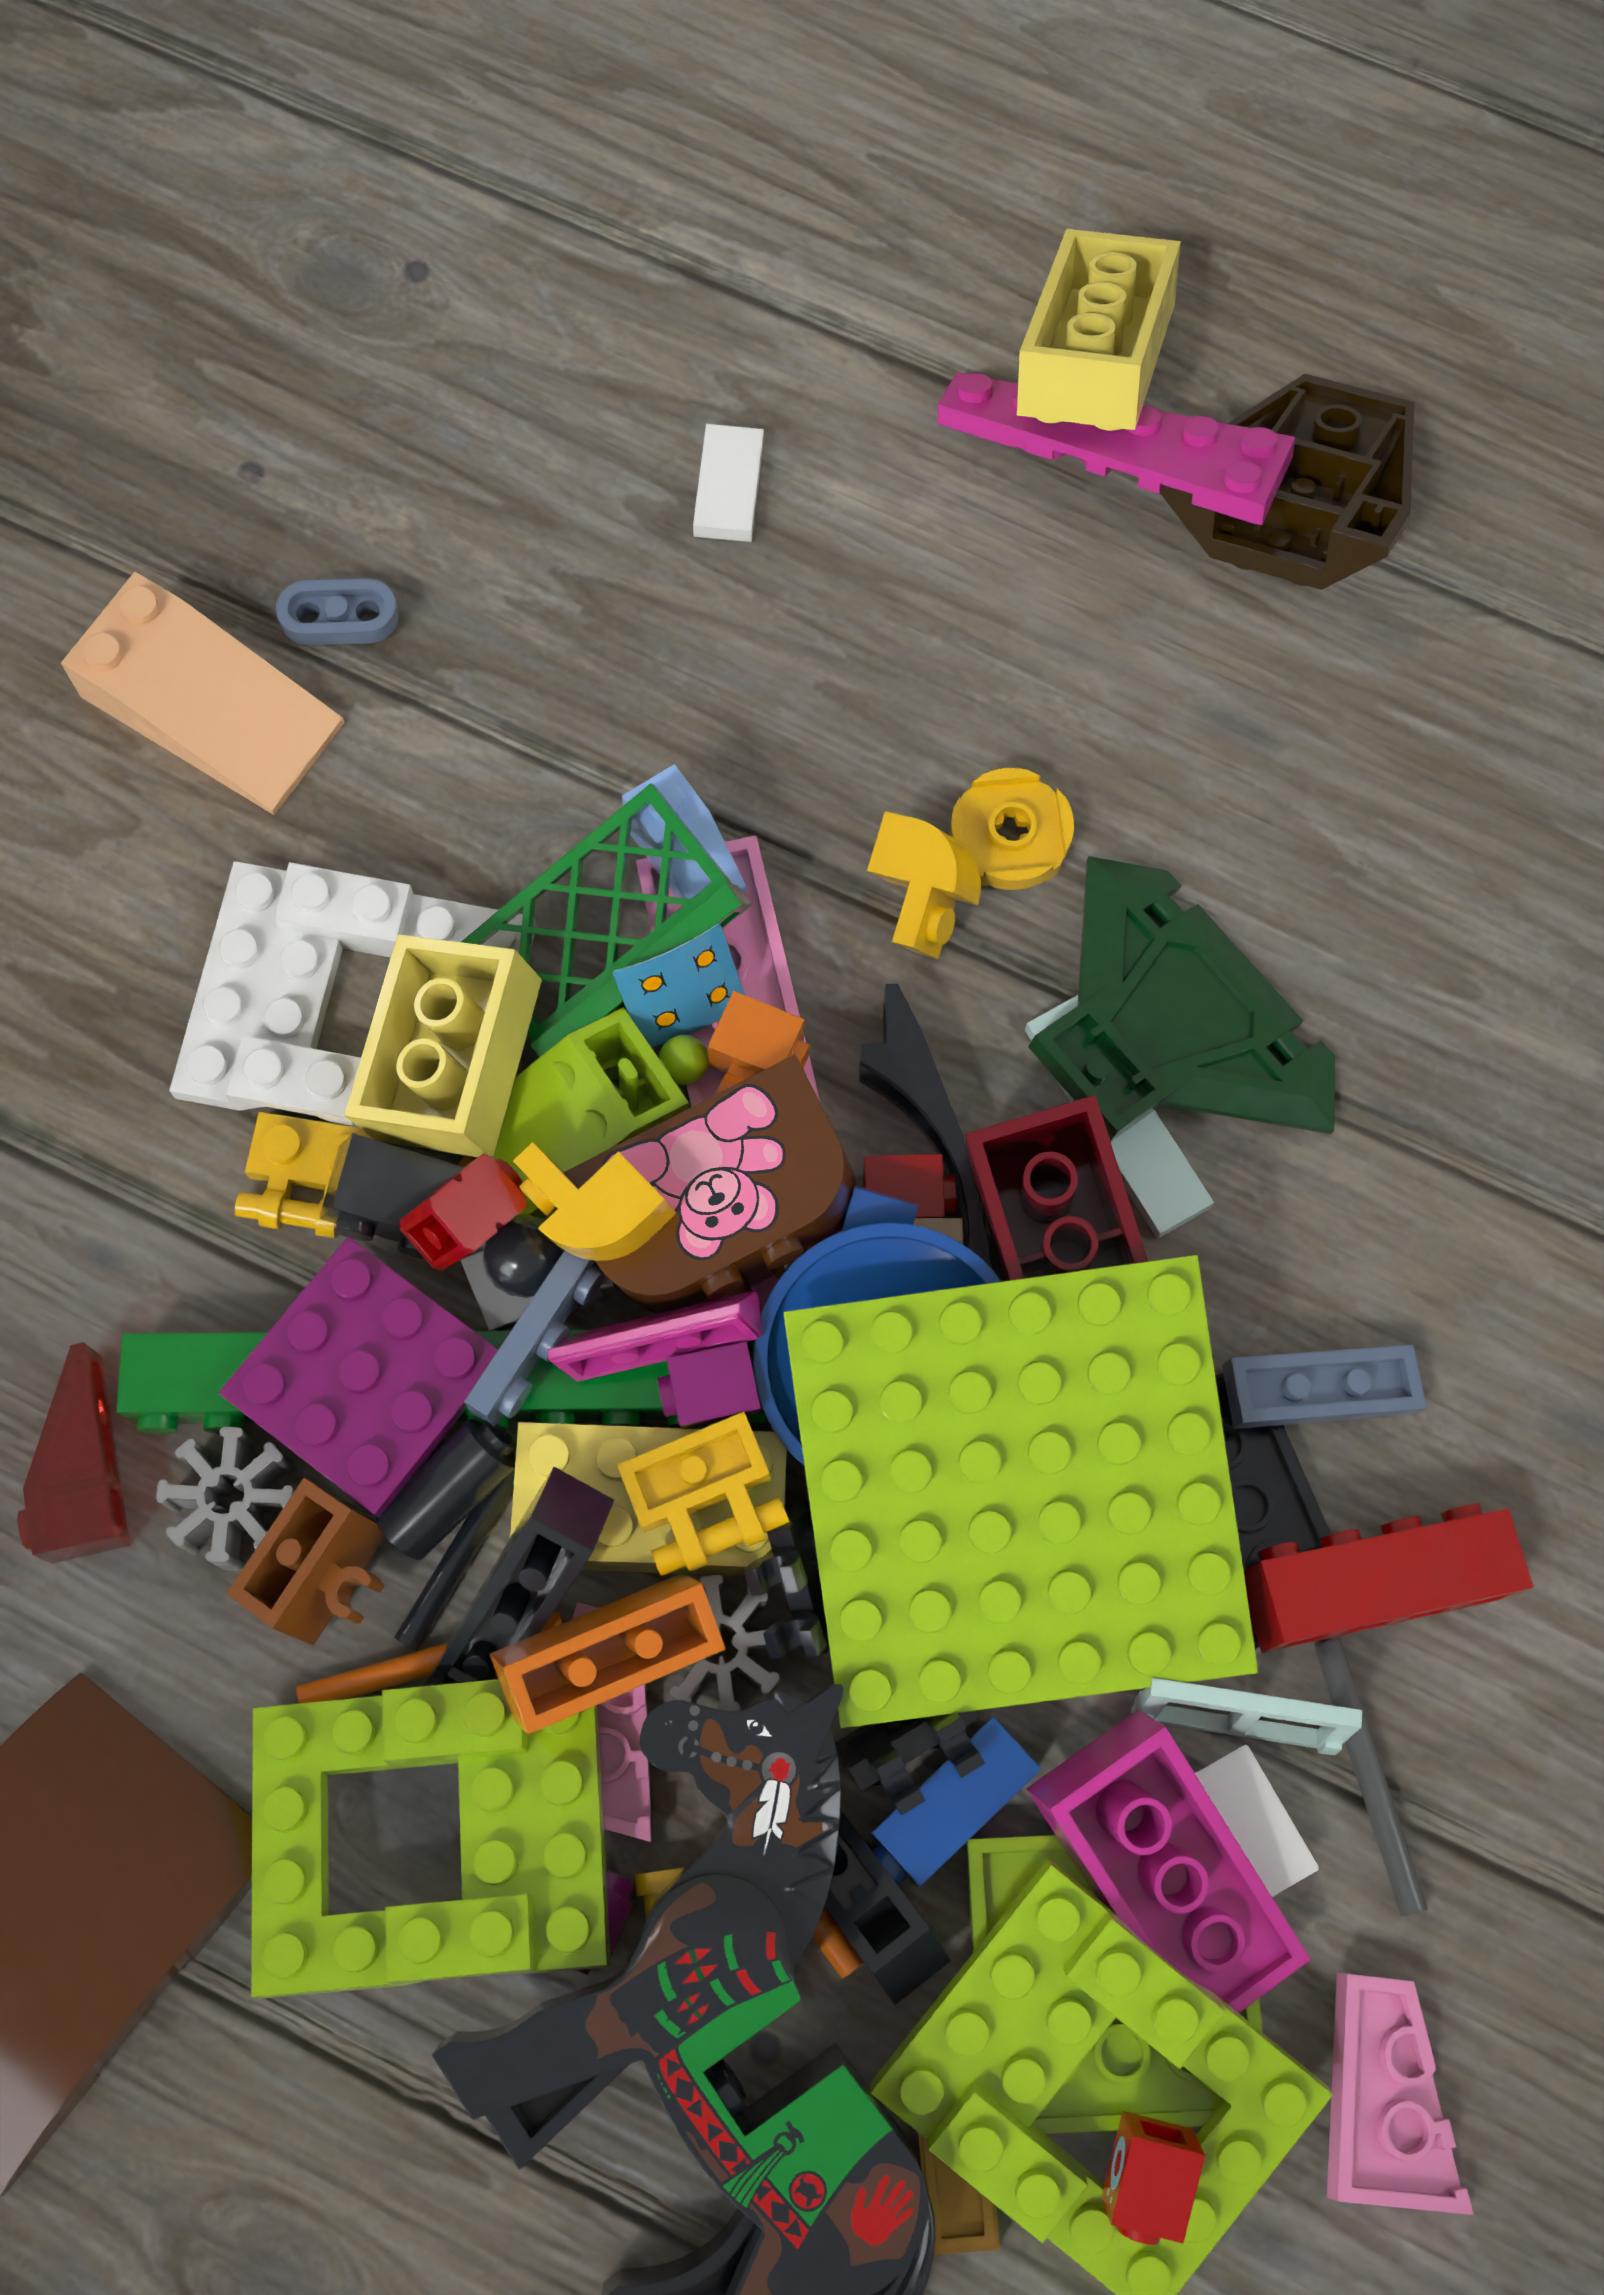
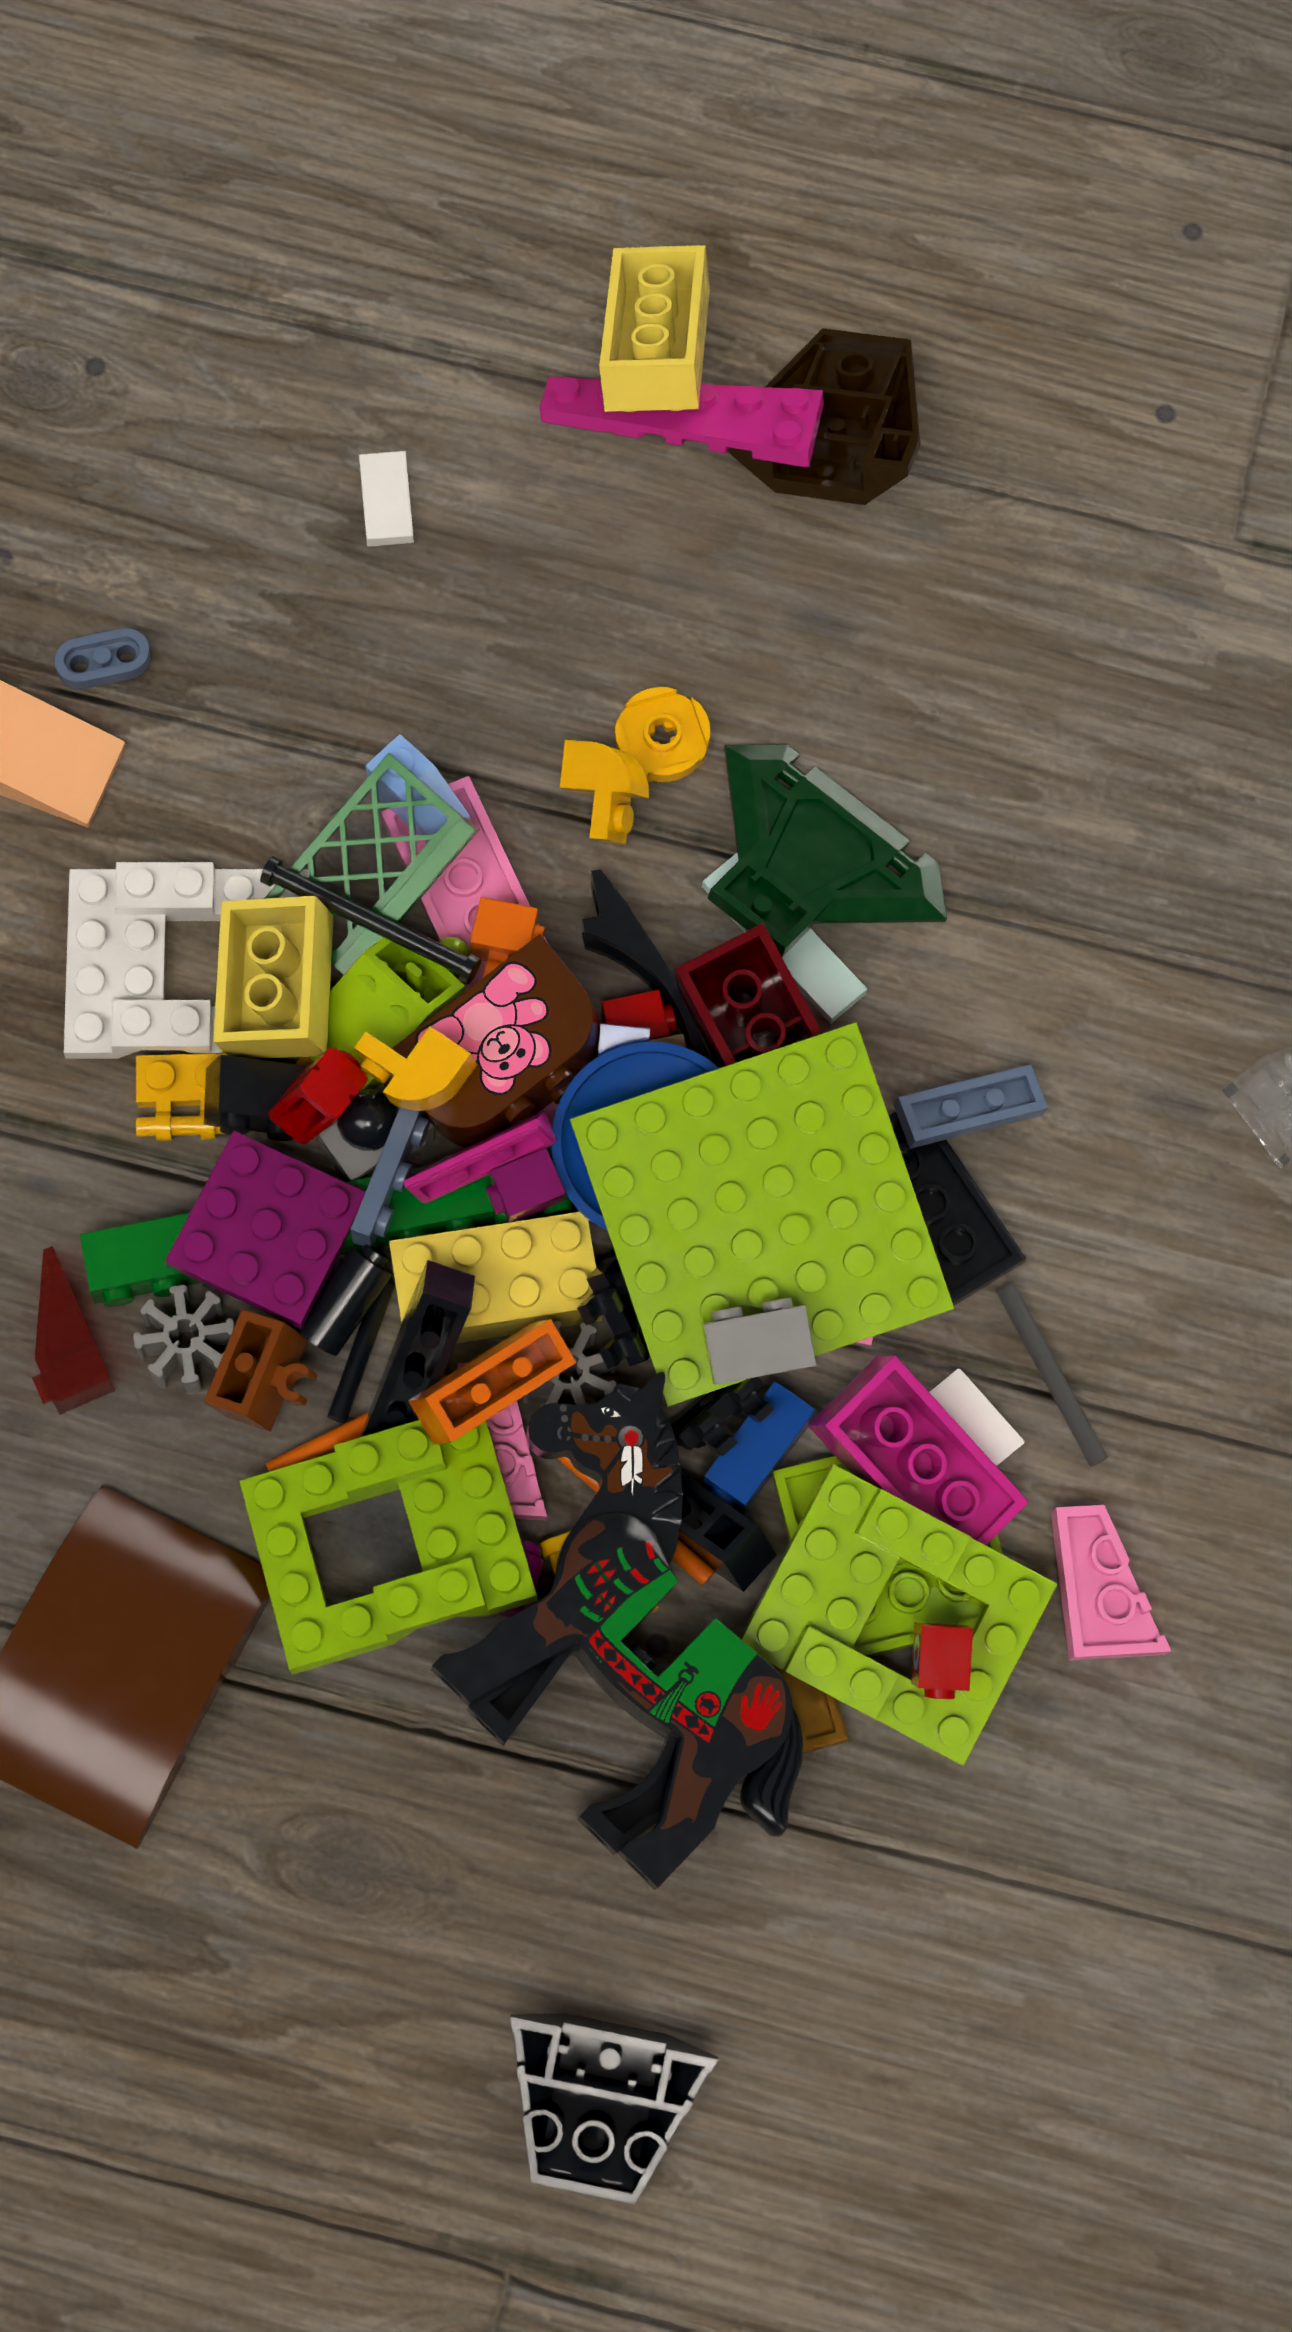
camera: 15 degrees left, 0 degrees up
(680, 988) = (441, 901): dark azure sticker -> none
(692, 1475) = (529, 1248): yellow plate -> none
(695, 1078) = (465, 966): none -> black bar
(980, 1673) = (758, 1343): none -> light grey brick
(1335, 1722) = (954, 1333): light aqua window -> none
(1384, 1578) = (1036, 1232): red brick -> none

